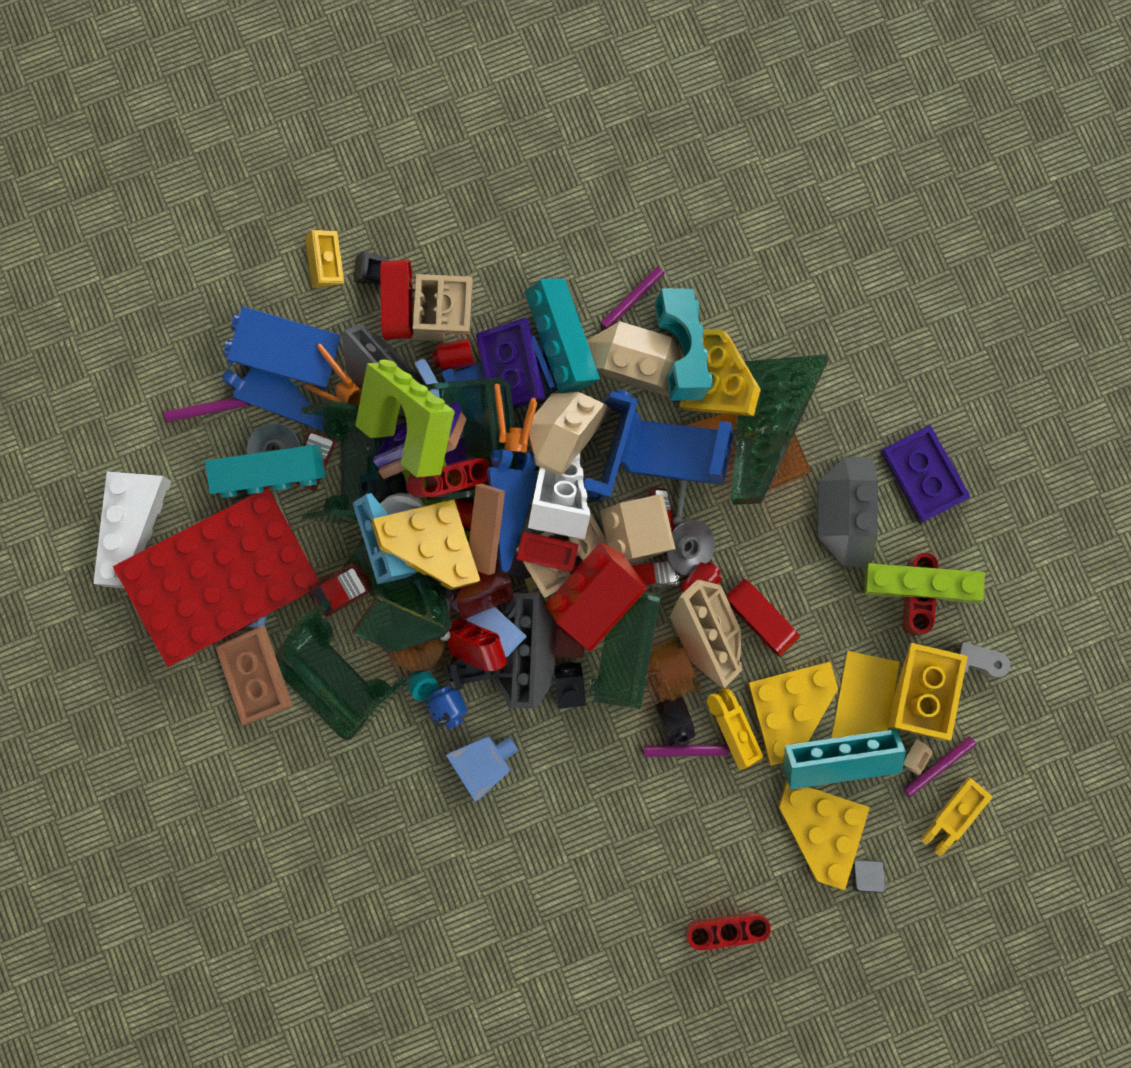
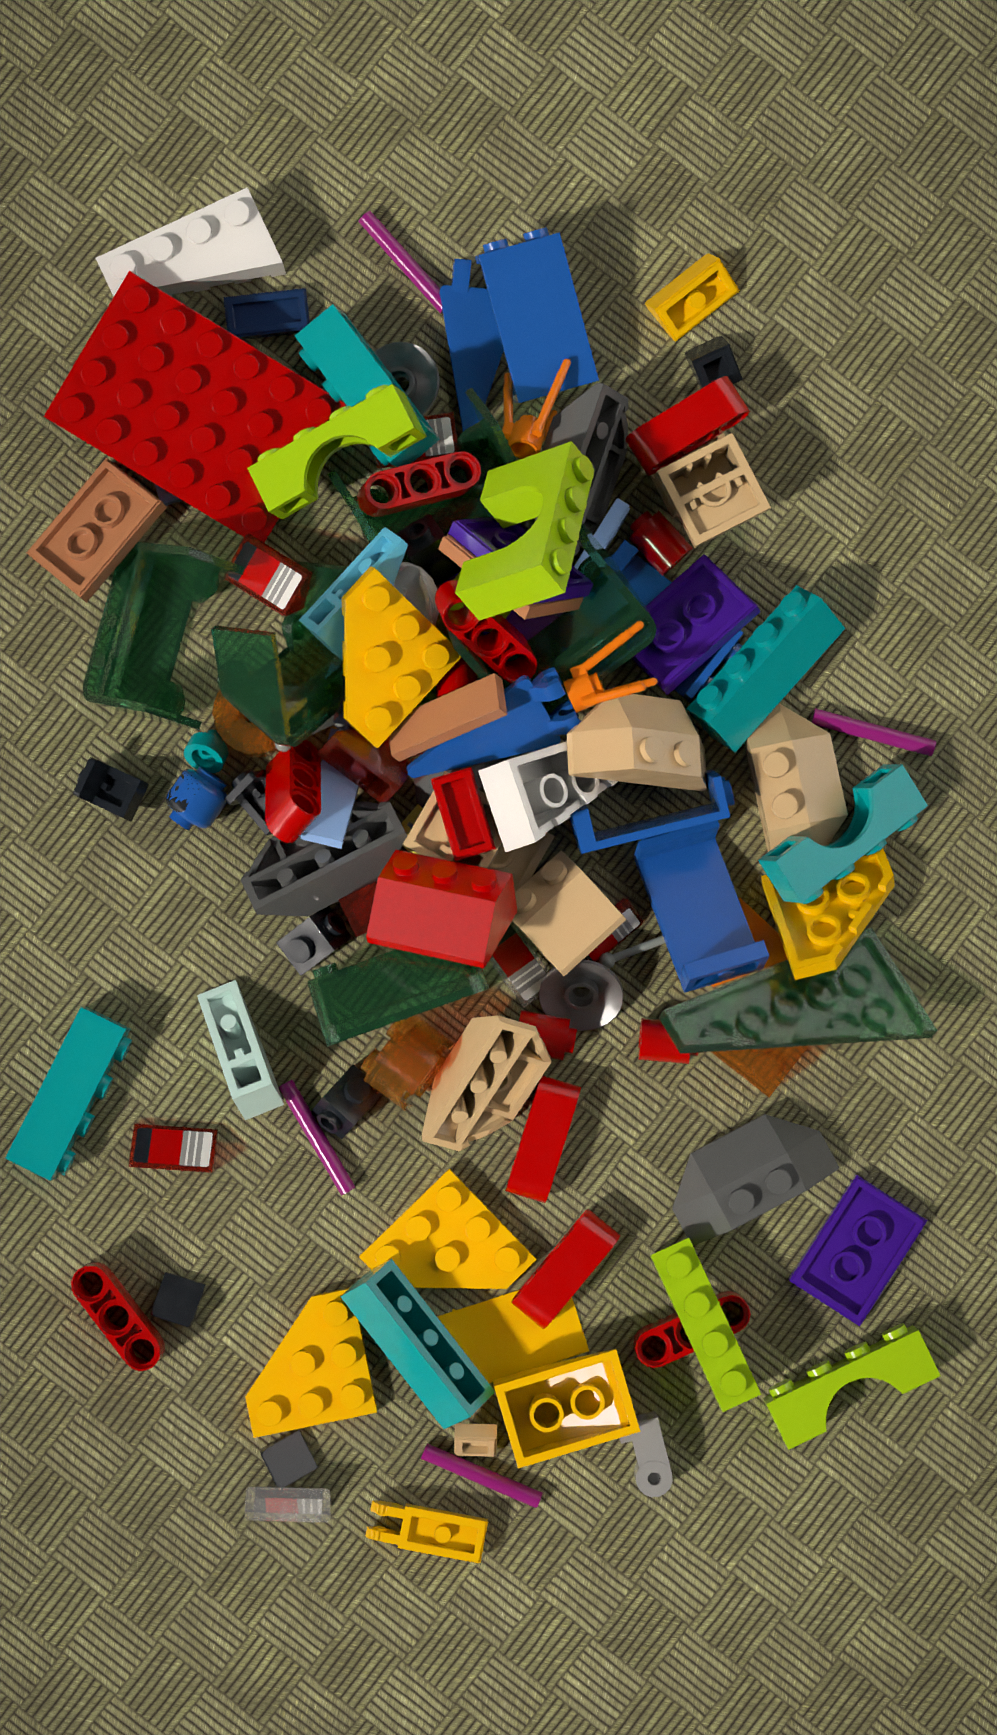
camera: 60 degrees right, 5 degrees up
(188, 504) = (267, 313): none -> dark blue tile
(288, 540) = (290, 475): none -> lime arch
(339, 458) = (435, 473): none -> red beam
(411, 755) = (110, 789): none -> black bracket
(482, 764) = (150, 886): medium blue torso -> none
(578, 885) = (69, 1093): none -> teal brick
(610, 766) = (240, 1051): none -> light aqua slope
(645, 840) = (173, 1148): none -> slope
(735, 728) = (379, 1183): yellow hinge -> none
(737, 889) = (178, 1299): none -> black slope
(743, 517) = (657, 1044): none -> red brick
(845, 647) = (565, 1269): none -> red beam
(897, 892) = (288, 1504): none -> clear slope
(999, 554) = (802, 1406): none -> lime arch

